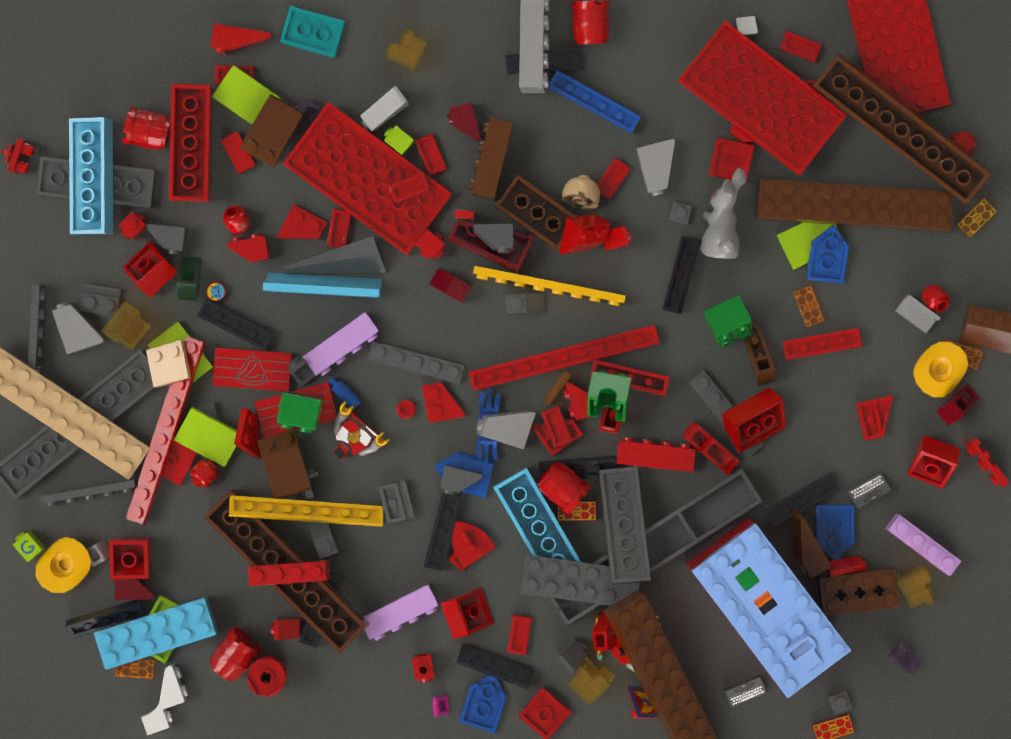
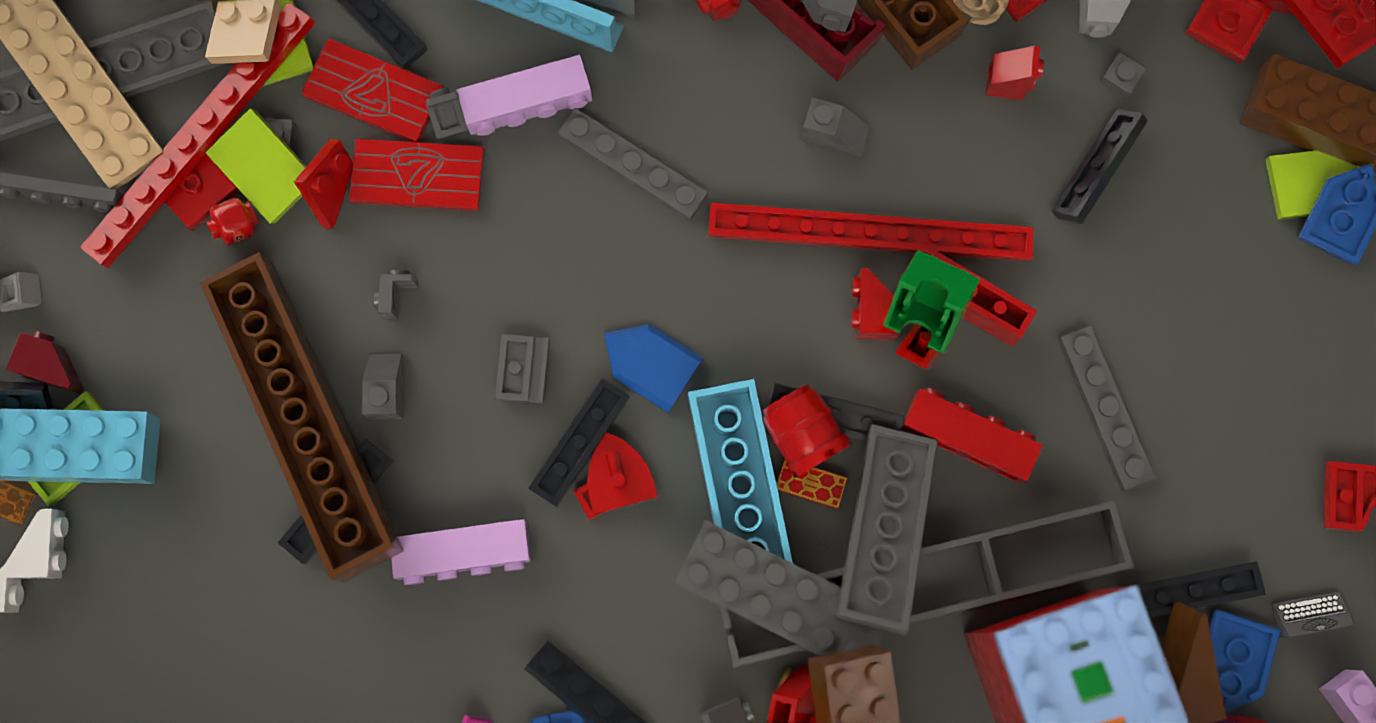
camera: 20 degrees right, 10 degrees down
(130, 557) = (59, 311): red slope -> none
(234, 654) = (162, 526): red piece -> none
(271, 665) = (218, 584): red piece -> none
(284, 464) = (363, 244): reddish brown slope -> none
(286, 628) = (264, 511): red slope -> none
(289, 573) = (297, 411): red brick -> none
(299, 412) = (418, 167): green piece -> none
(305, 511) = (367, 327): yellow plate -> none
(345, 393) = (503, 174): blue cylinder -> none
(355, 434) = (494, 238): torso -> none
(406, 409) = (590, 230): red tile -> none
(426, 661) = (477, 650): red brick -> none
(440, 403) = (648, 240): red wing -> none
(450, 285) = (729, 66): dark red slope -> none
(457, 479) = (634, 363): dark grey slope -> none
(467, 613) = (572, 590): red slope -> none
(487, 411) = (721, 281): blue piece -> none
(507, 427) = (742, 308): light grey slope -> none
(519, 634) = (647, 658): red tile -> none
(541, 284) = (893, 118): yellow plate -> none
(543, 434) = (820, 350): red wing -> none
(556, 388) = (843, 274): clear orange tile -> none
(557, 427) = (824, 335): red tile -> none
(584, 233) = (965, 47): red slope -> none
(710, 448) = (1065, 454): red slope -> none
(721, 235) = (1188, 117): light grey animal -> none
(728, 321) = (1160, 255): green piece -> none
(755, 419) = (1156, 429): red slope -> none
(759, 356) = (1189, 331): reddish brown slope -> none
(808, 306) = (1289, 283): clear orange tile -> none
(822, 344) = (1297, 347): red plate -> none

